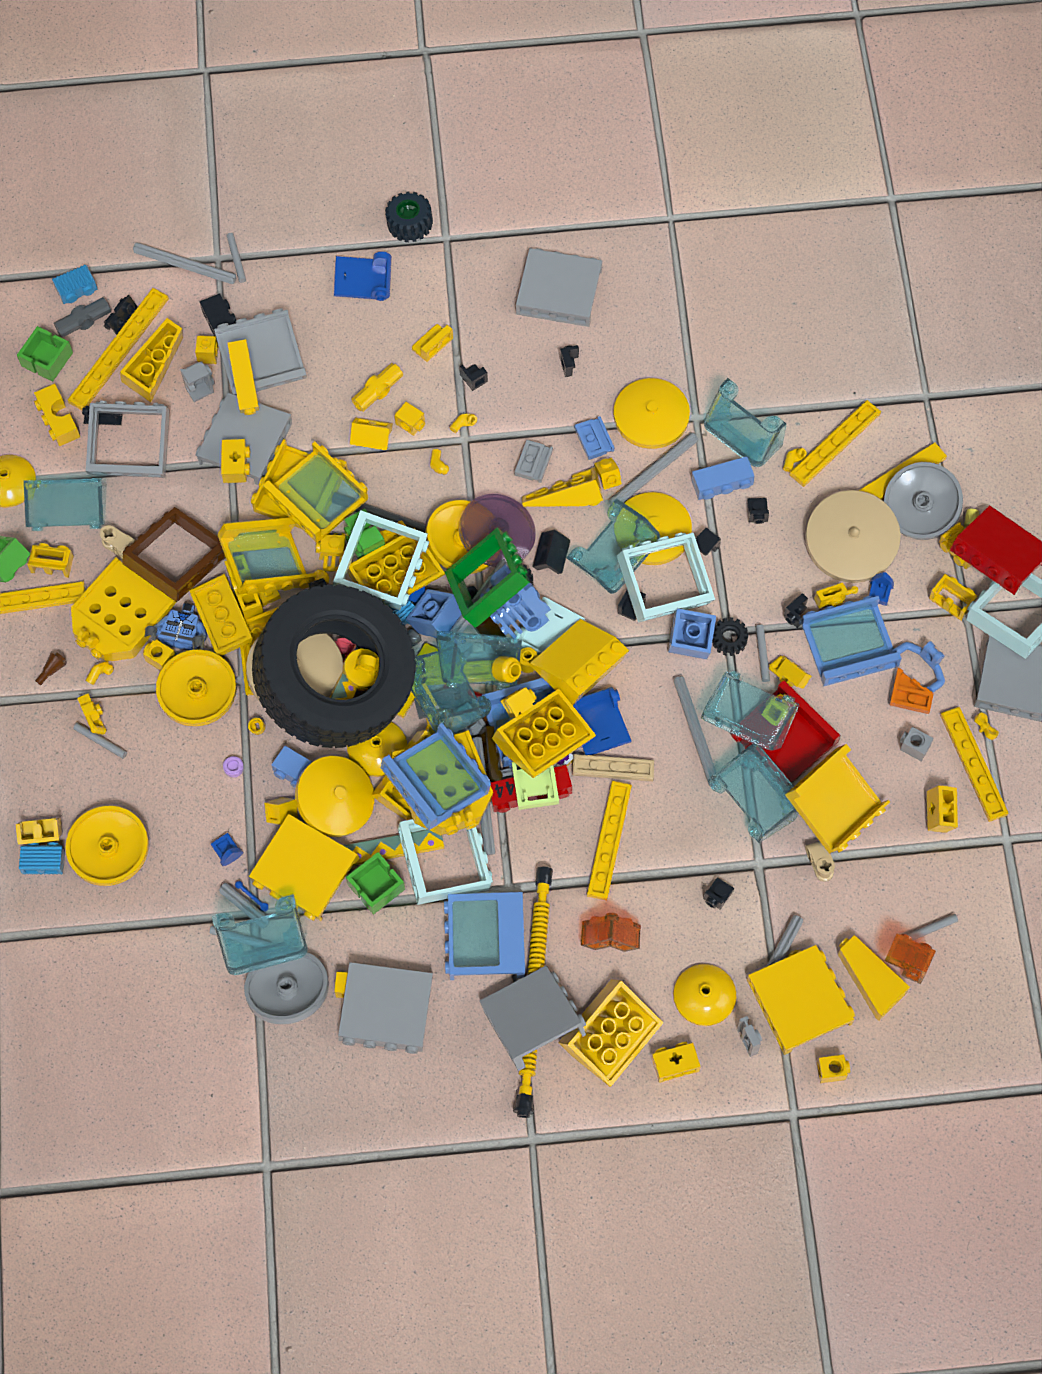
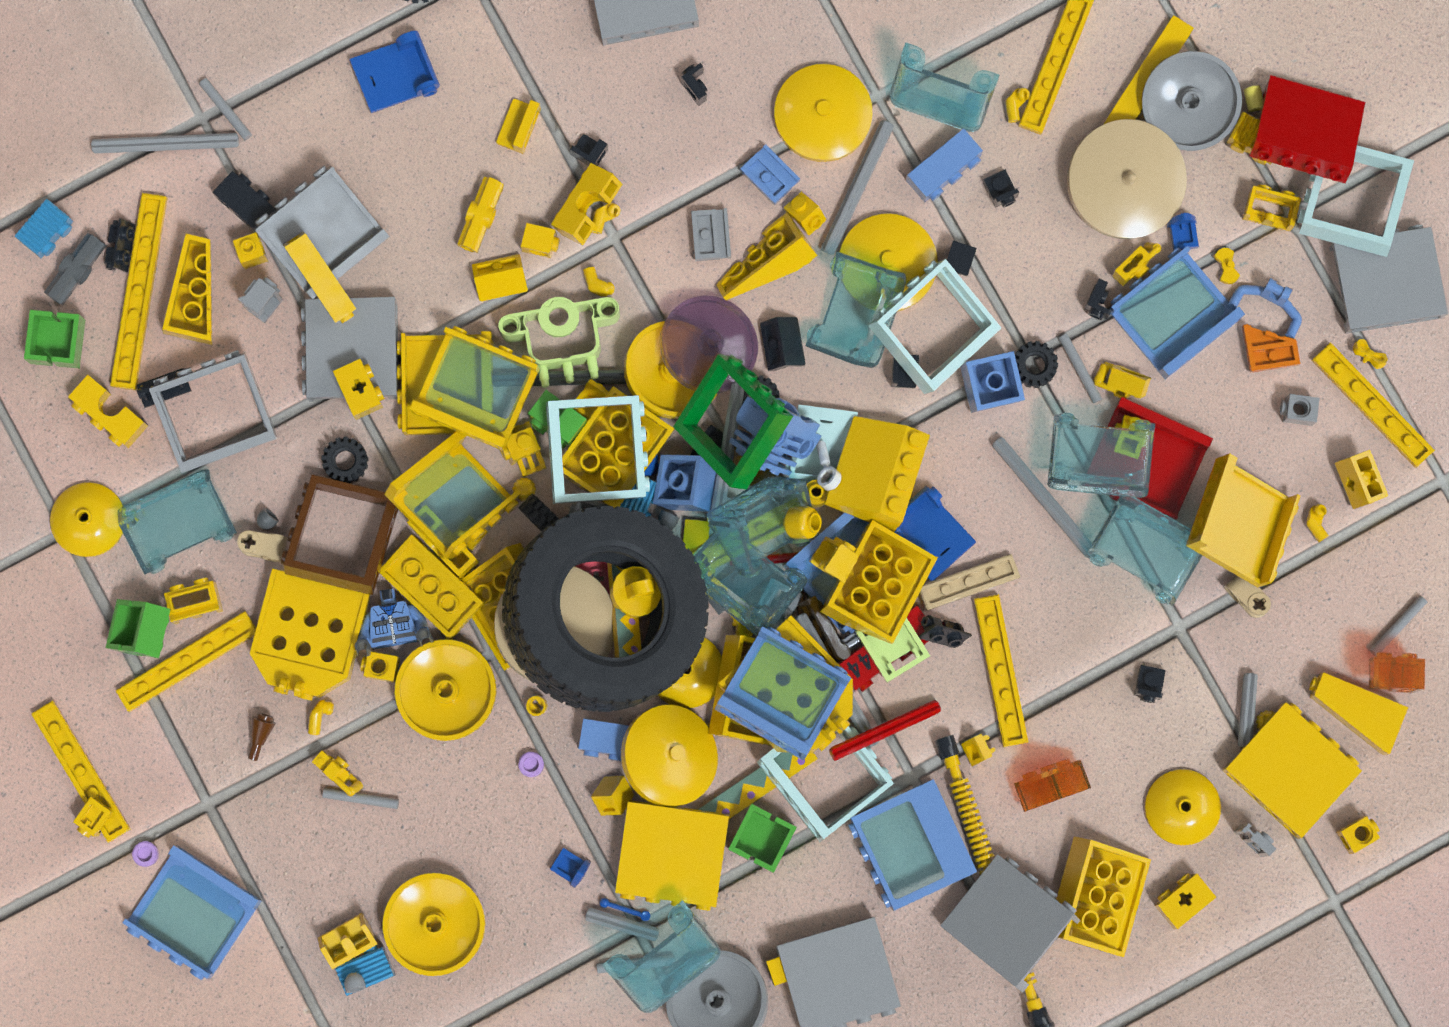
camera: 25 degrees left, 15 degrees up
(28, 860) = (354, 982): none -> light grey hinge
(129, 526) = (266, 519): none -> dark grey hinge
(202, 499) = (339, 446): none -> black tyre
(427, 484) = (573, 309): none -> yellowish green piece
(466, 397) = (594, 186): none -> yellow arch
(502, 842) = (884, 730): none -> red axle
(542, 647) = (828, 470): none -> white piece
(565, 887) = (977, 749): none -> yellow tile
(577, 793) = (943, 632): none -> black hinge
(895, 827) = (1314, 521): none -> yellow arm
(904, 619) = (1225, 258): none -> yellow piece

